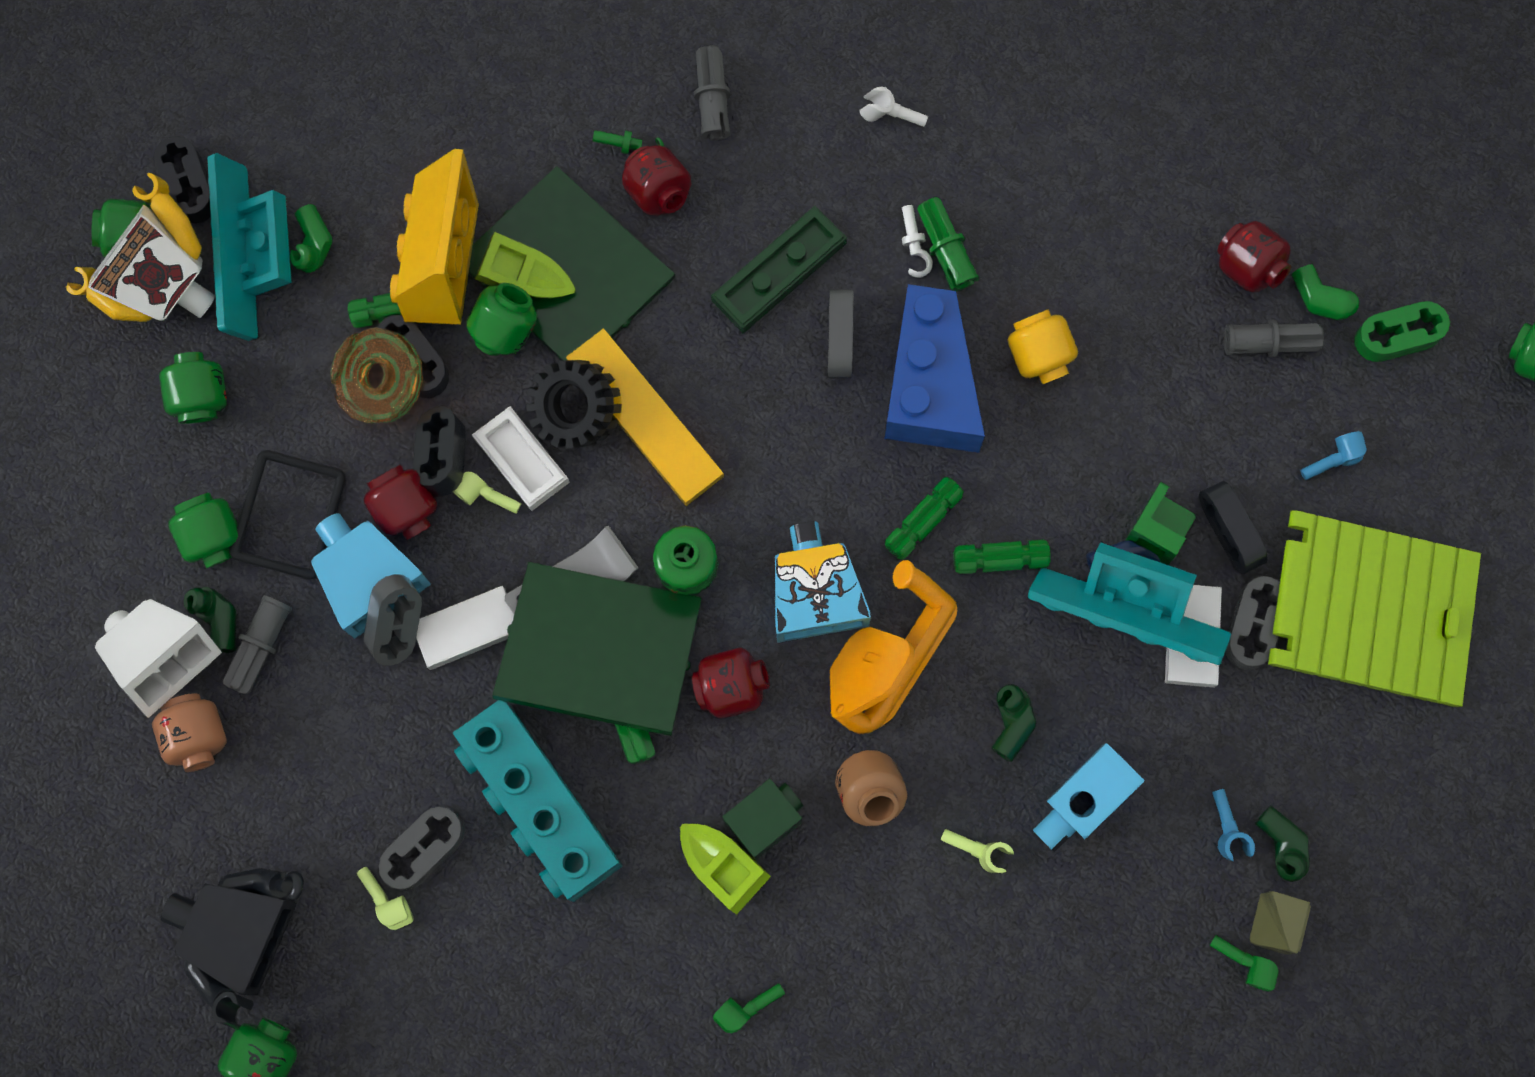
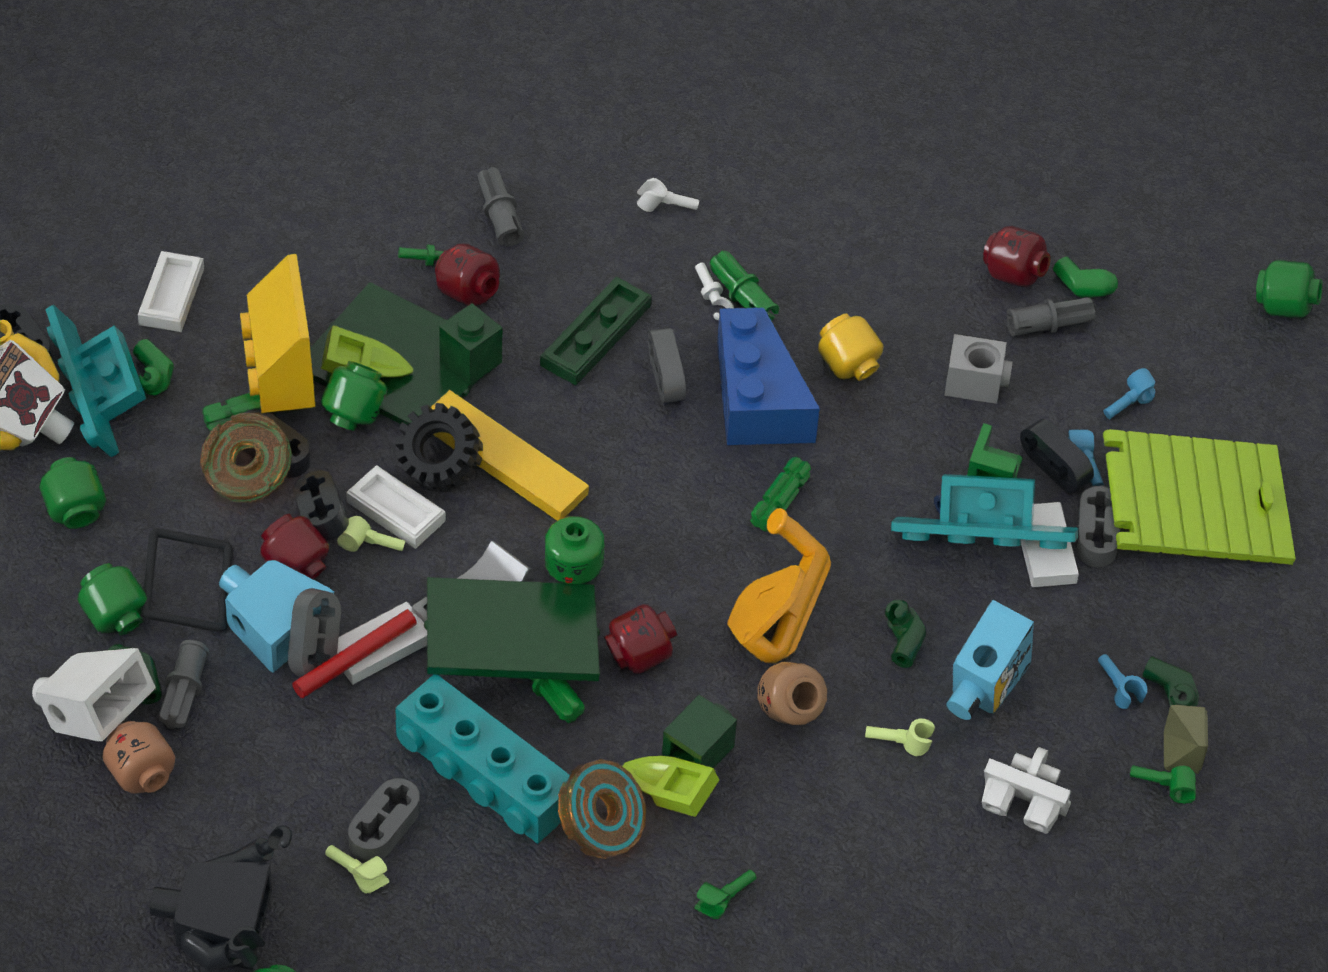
camera: 20 degrees left, 25 degrees down
(351, 143) = (171, 291): none -> white tile
(431, 646) = (354, 653): none -> red bar
(636, 276) = (470, 344): none -> dark green brick
(656, 912) = (623, 802): none -> clear orange tile
(816, 588) = (700, 558): torso -> none
(1002, 556) = (858, 511): green axle -> none
(1109, 969) = (1044, 797): none -> white hips
(1156, 409) = (977, 369): none -> light grey brick
(1265, 513) = (1085, 442): none -> dark azure hand
(1404, 341) = (1157, 293): green beam -> none

